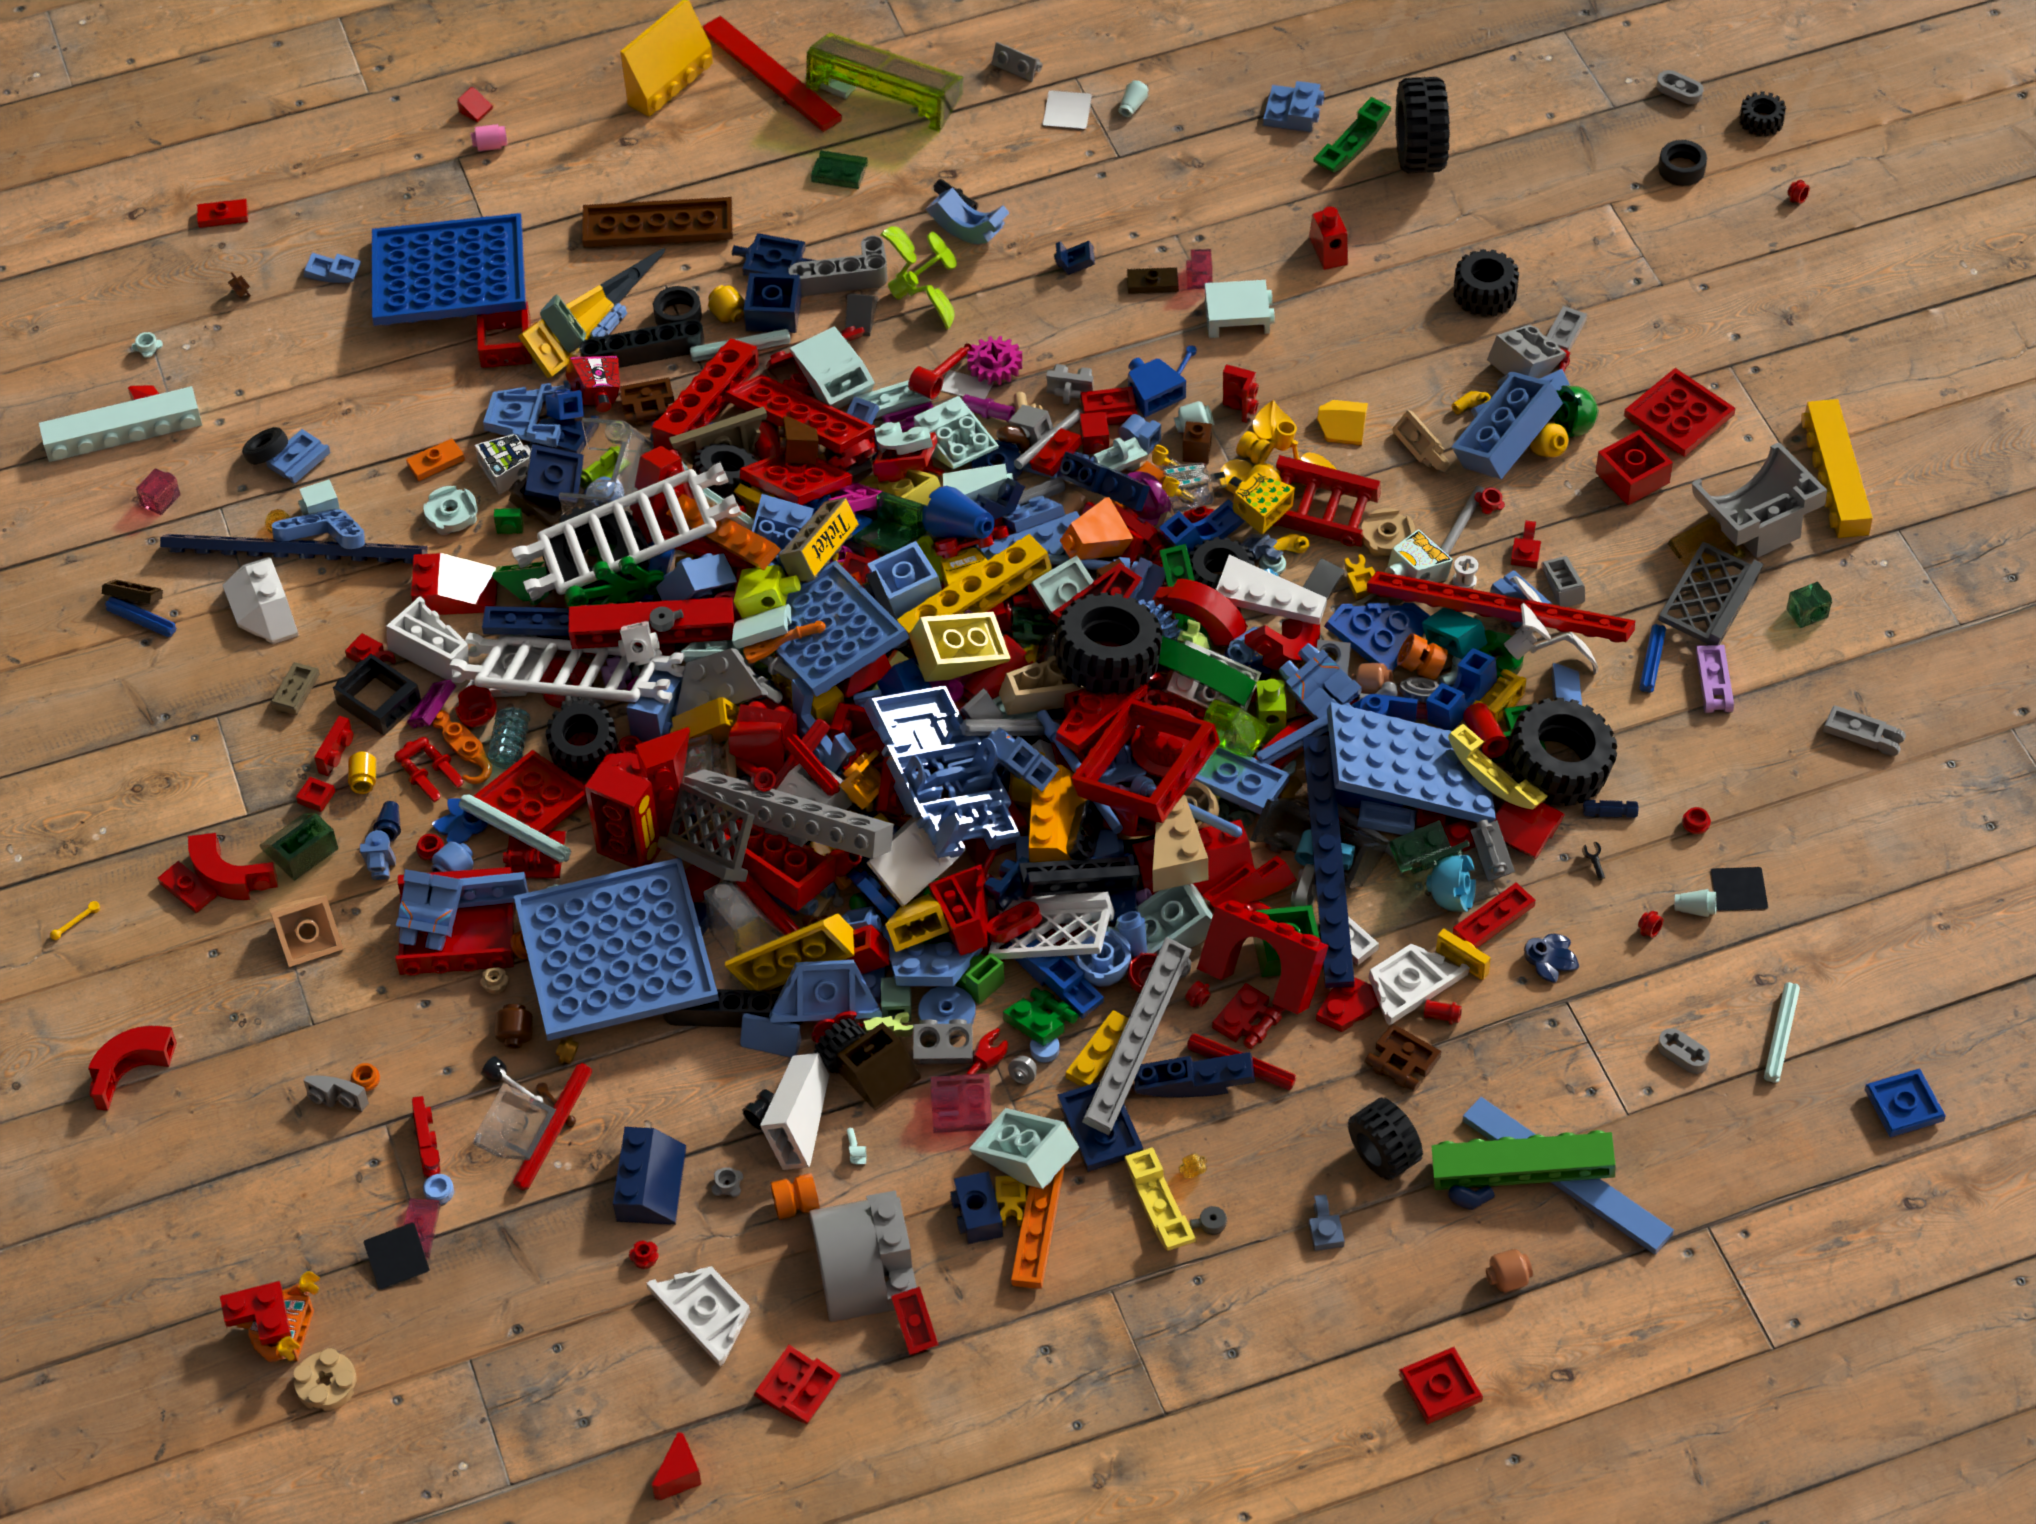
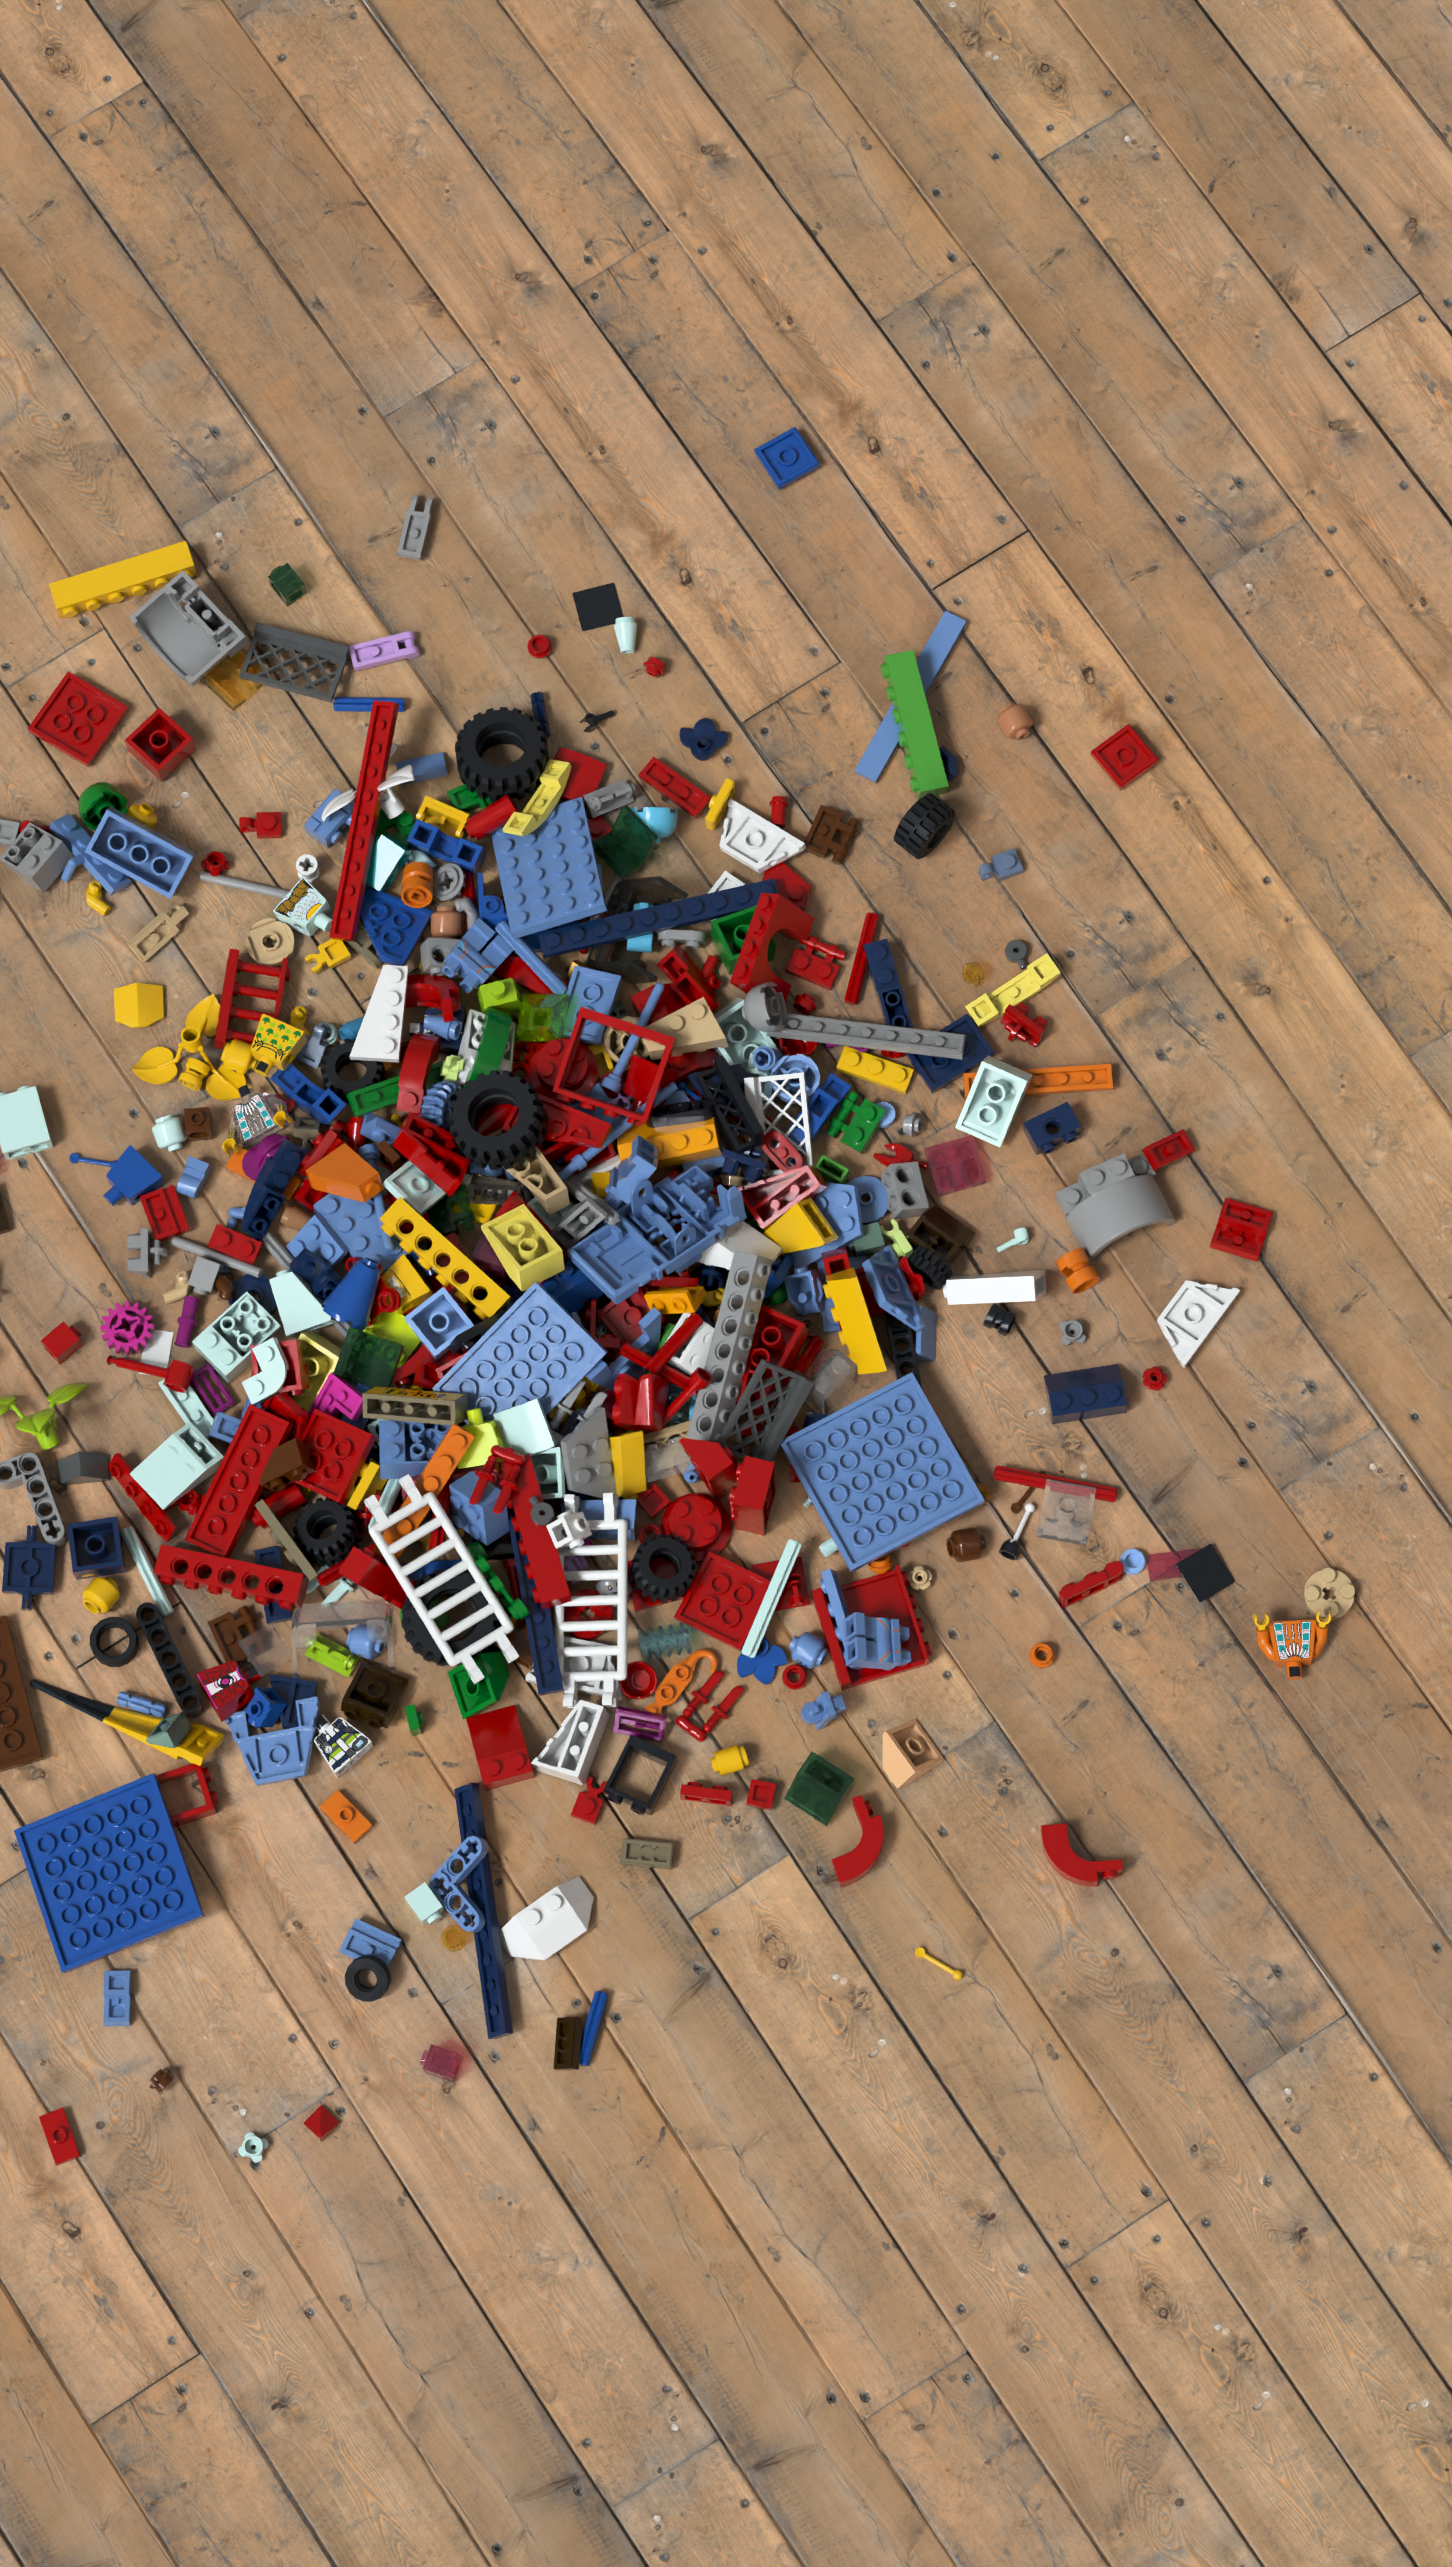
camera: 100 degrees left, 20 degrees up
(120, 424) = (364, 2130): light aqua brick -> none
(187, 887) = (882, 1876): red plate -> none
(262, 1304) = (1287, 1653): red plate -> none
(331, 1089) = (1065, 1677): light grey slope -> none
(389, 820) = (777, 1720): dark blue cone -> none
(459, 519) = (407, 1795): light aqua plate -> none
(552, 472) = (363, 1683): dark blue plate -> none
(624, 407) = (266, 1649): none -> clear piece
(677, 1471) = (1340, 1296): red slope -> none
(715, 571) = (486, 1476): none -> red piece
(763, 649) = (557, 1419): orange piece -> none
(995, 309) = (62, 1342): none -> red brick
(1010, 1197) = (1034, 1106): yellow plate -> none
(1094, 432) = (202, 1217): red brick -> none
(1122, 455) = (230, 1186): light aqua hips -> none
(1127, 1198) = (1021, 1026): none -> red hips
(1186, 928) = (765, 1008): none -> light grey cylinder
(1240, 390) = (137, 1085): red bracket -> none
(1324, 578) = (345, 986): dark grey slope -> none
(1565, 583) = (307, 791): light grey slope -> none
(1683, 1051) = (768, 624): light grey beam -> none
(1781, 1032) = (741, 556): light aqua axle -> none

